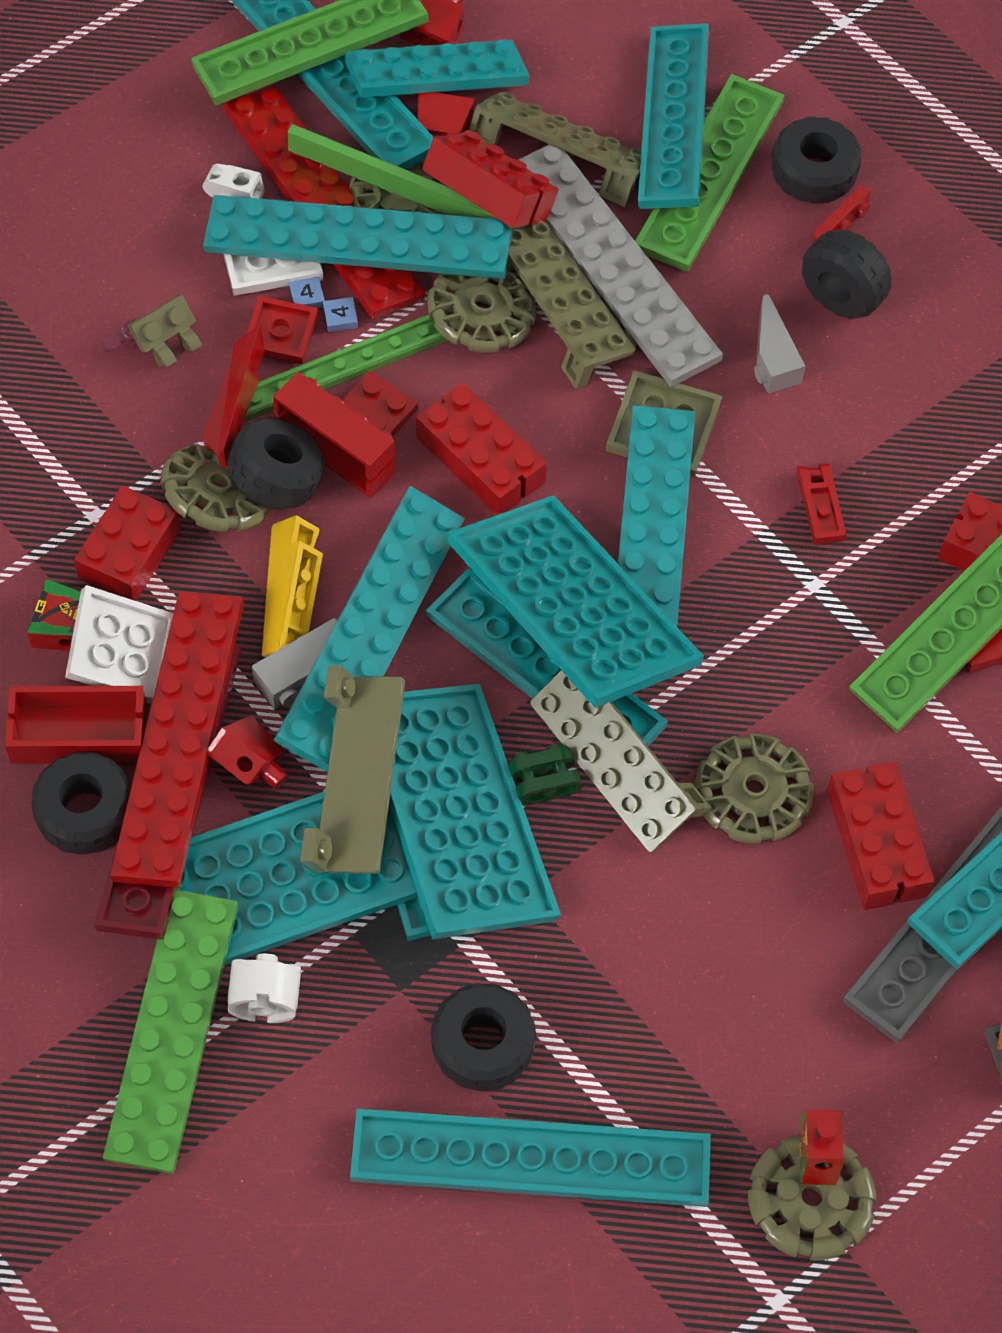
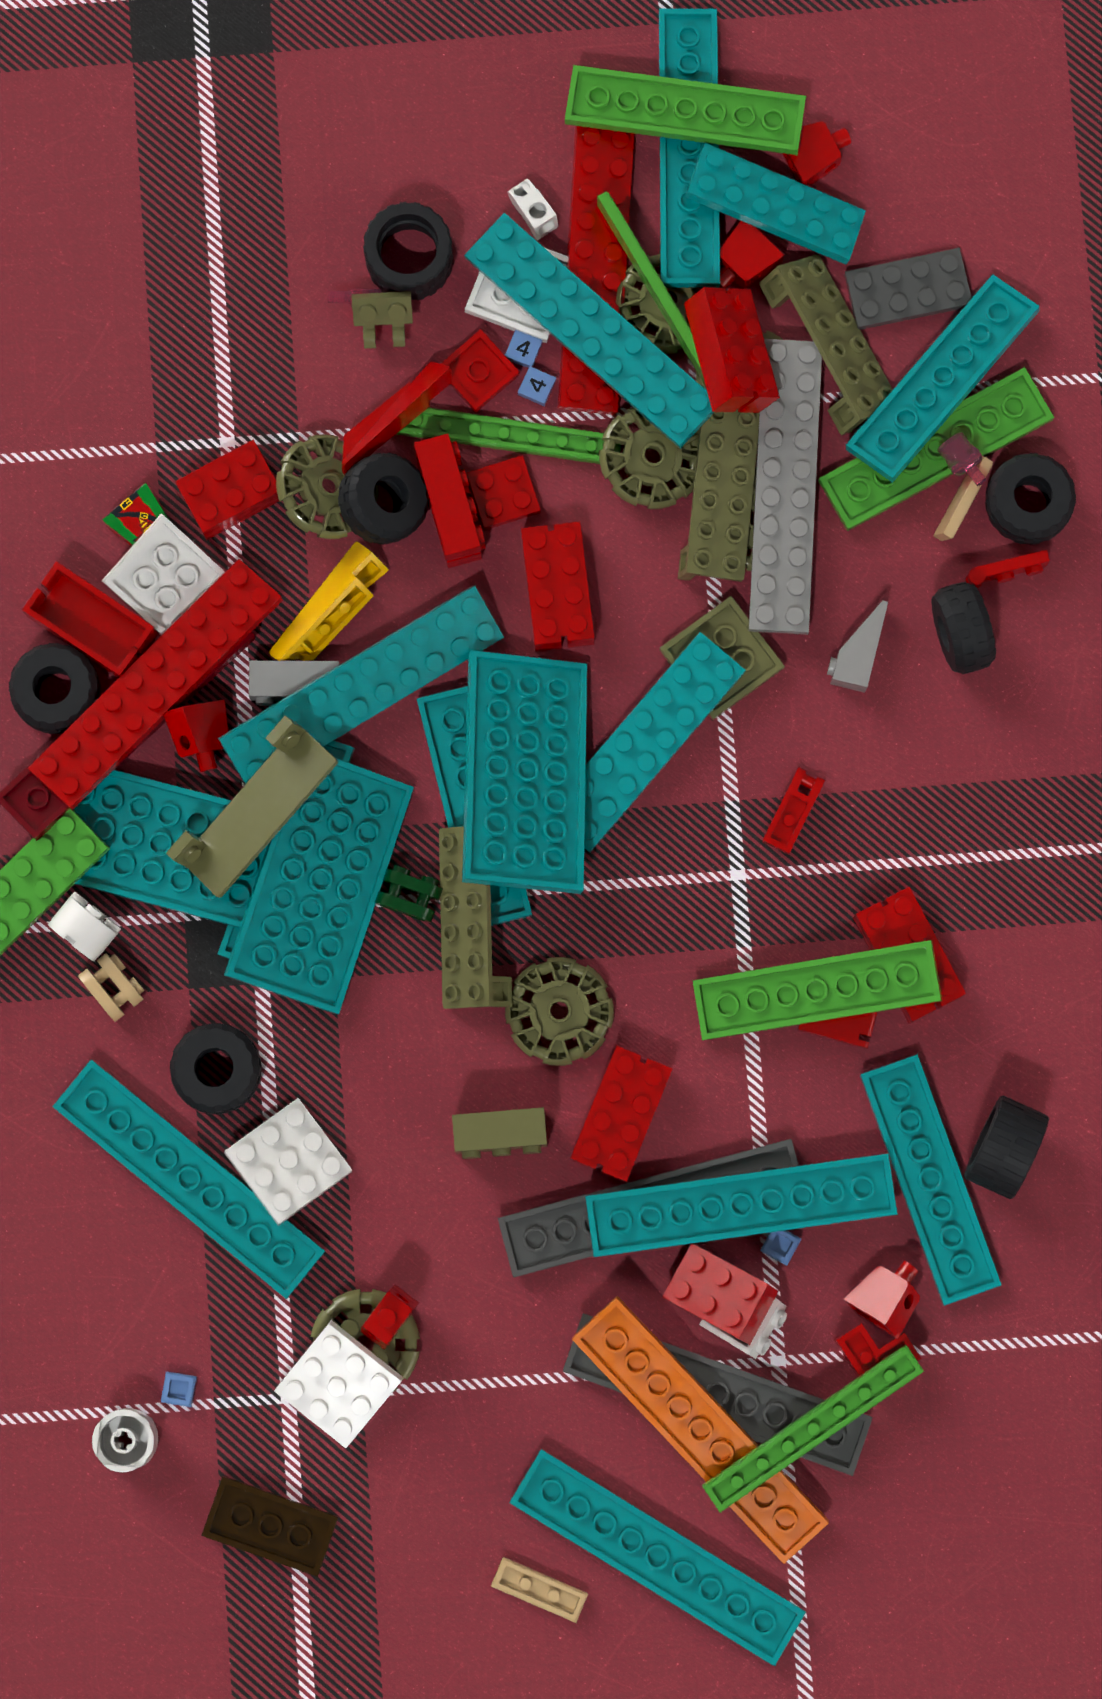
camera: 40 degrees right, 20 degrees up
(146, 242) = (408, 217): none -> black tyre
(319, 1015) = (129, 989): none -> tan brick
(591, 76) = (908, 288): none -> dark grey plate
(613, 1077) = (288, 1161): none -> white plate
(739, 157) = (962, 457): none -> clear pink piece
(762, 192) = (961, 504): none -> tan tile
(788, 915) = (499, 1132): none -> olive brick
(819, 1245) = (338, 1384): none -> white plate

